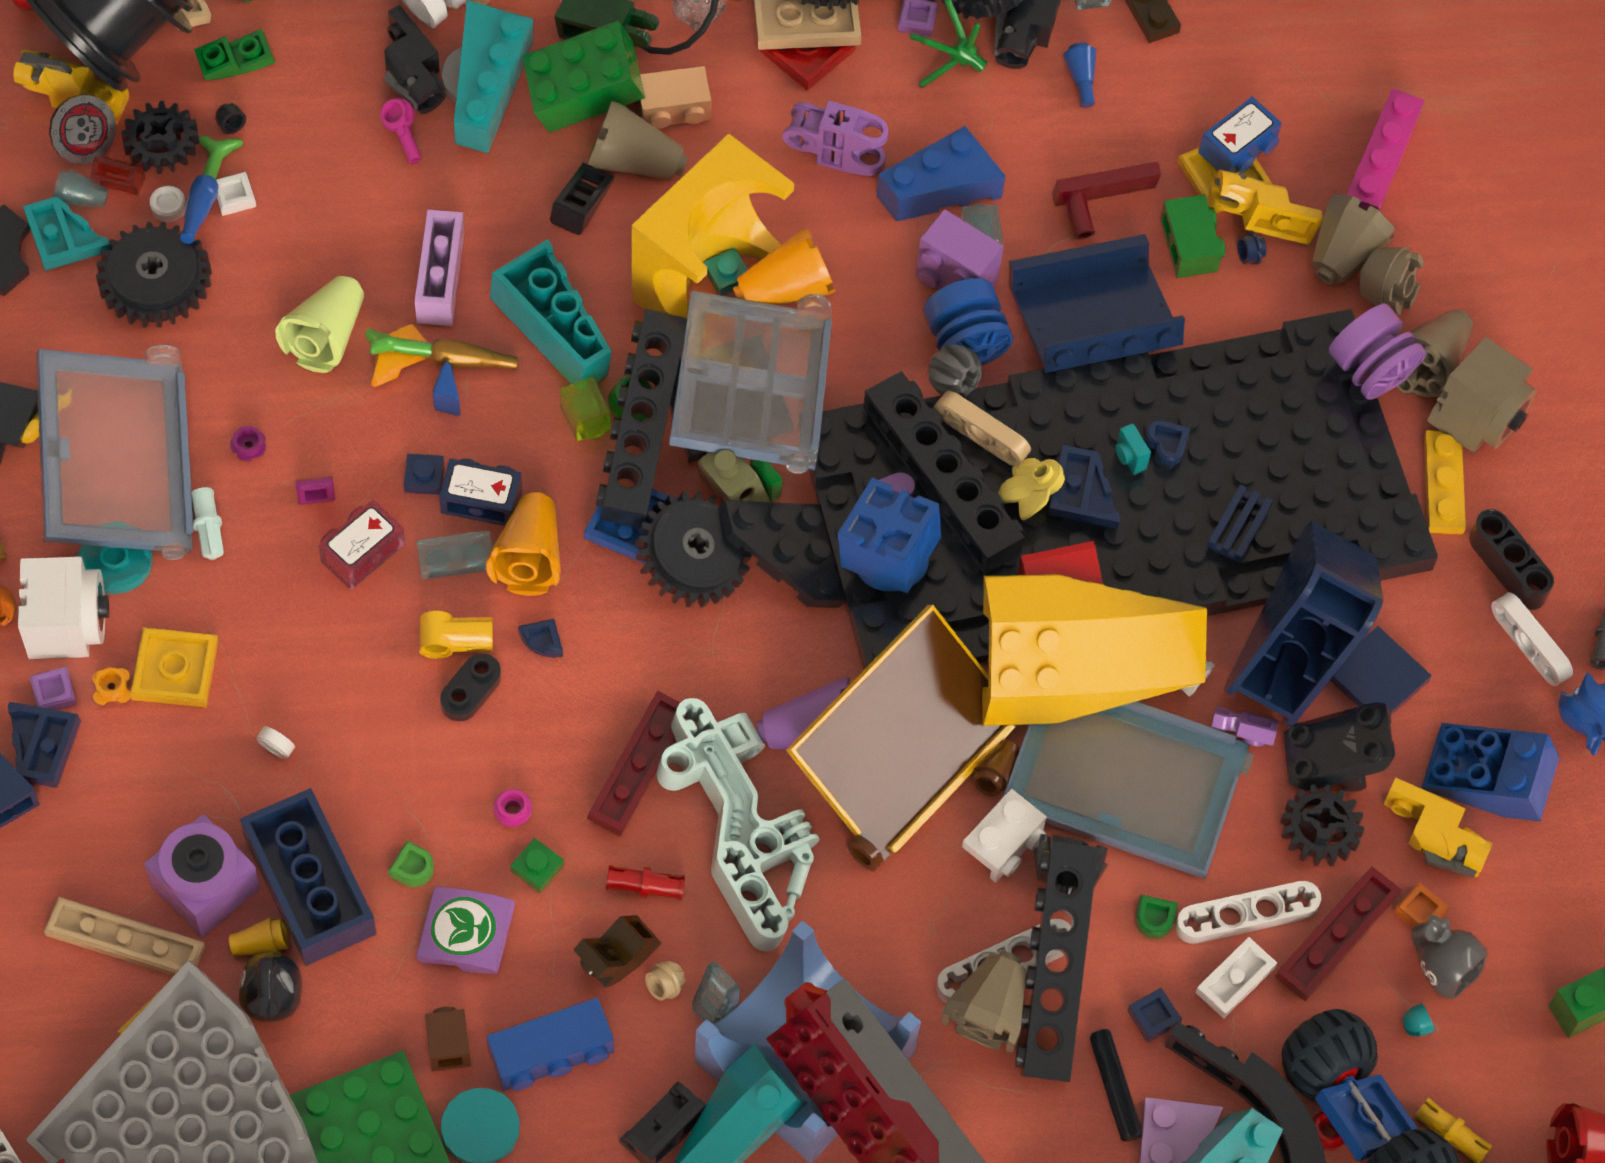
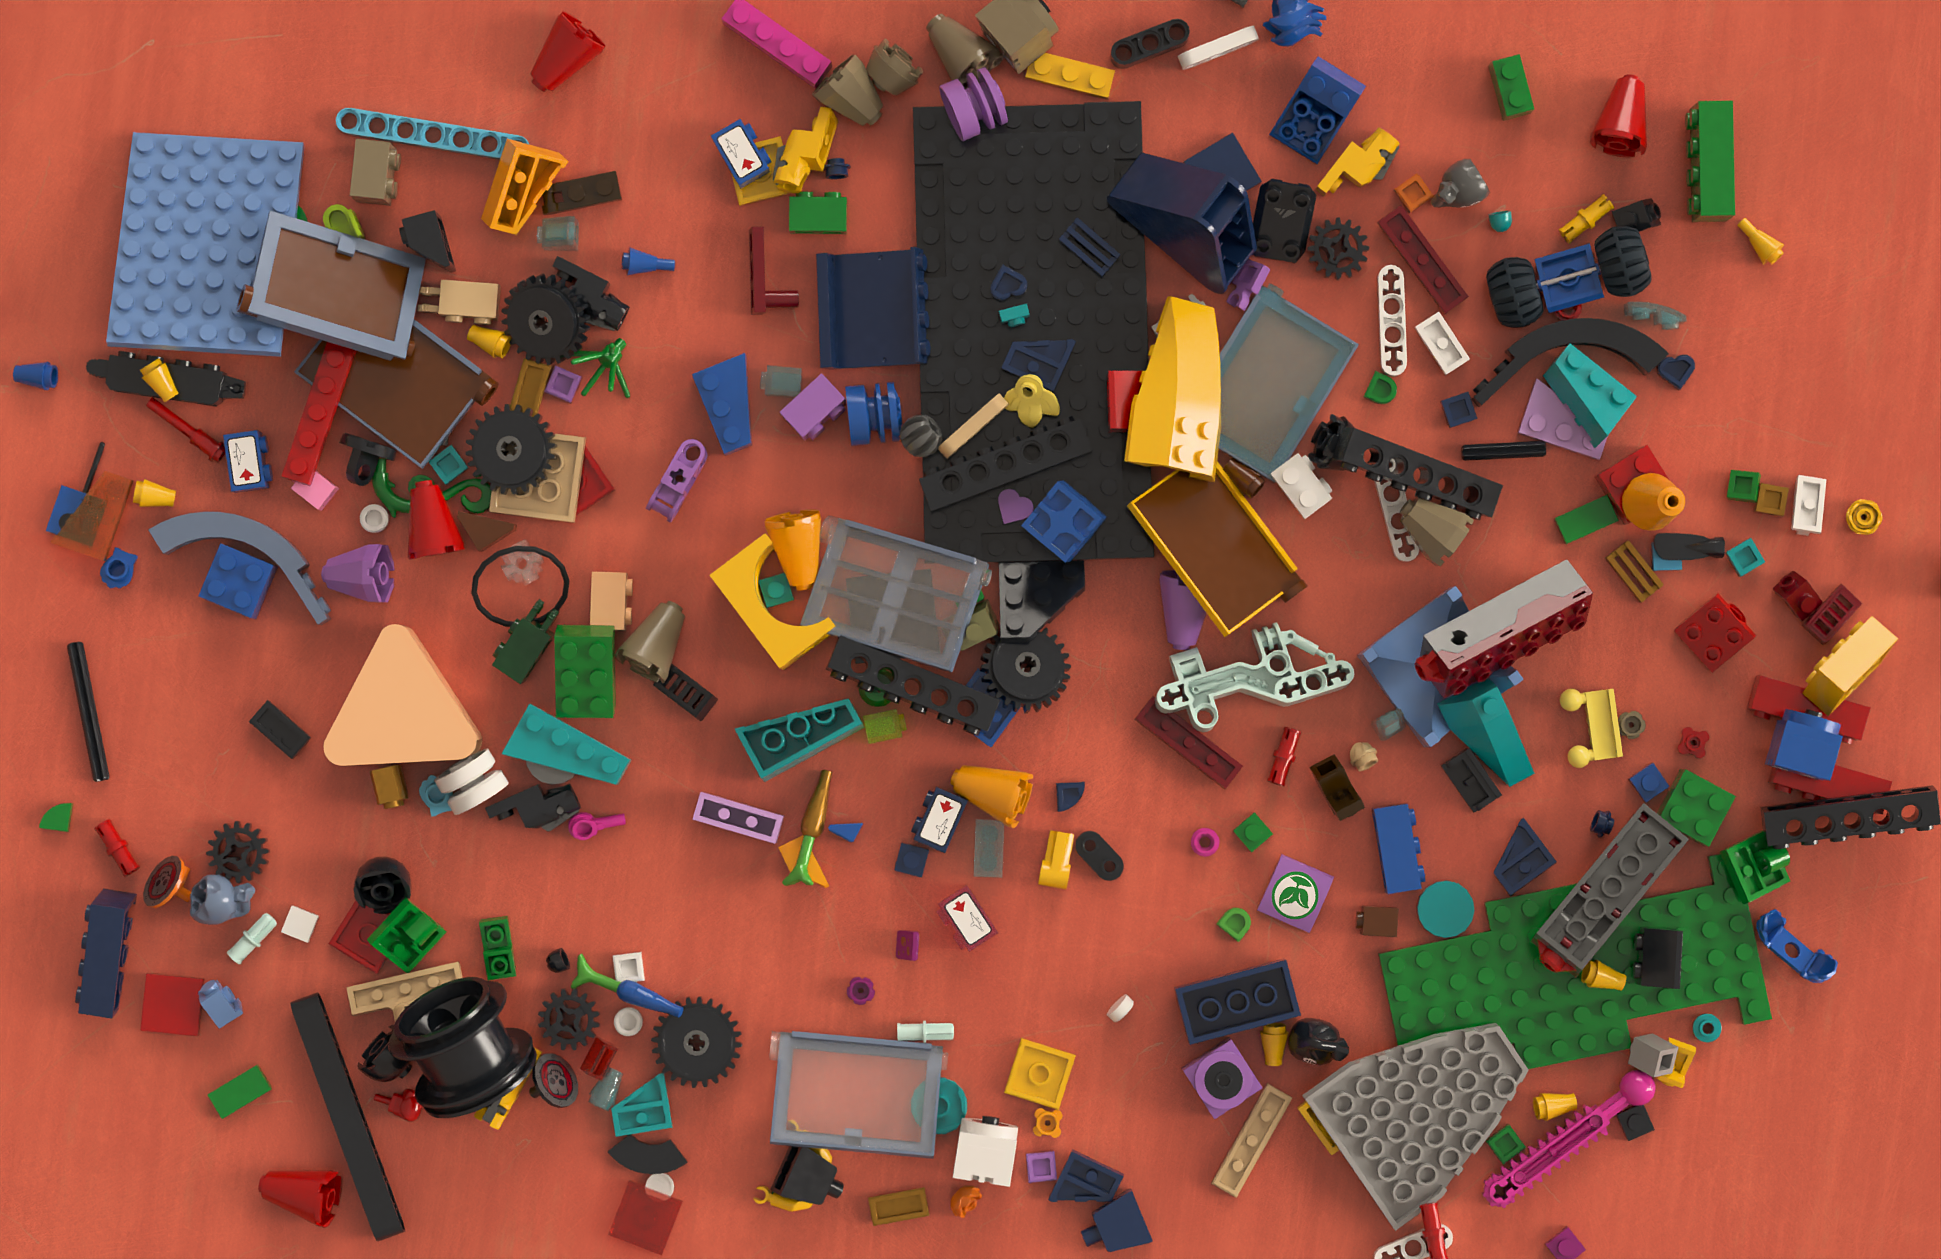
camera: 75 degrees left, 25 degrees up
(322, 325) = (769, 915): yellowish green cone -> none

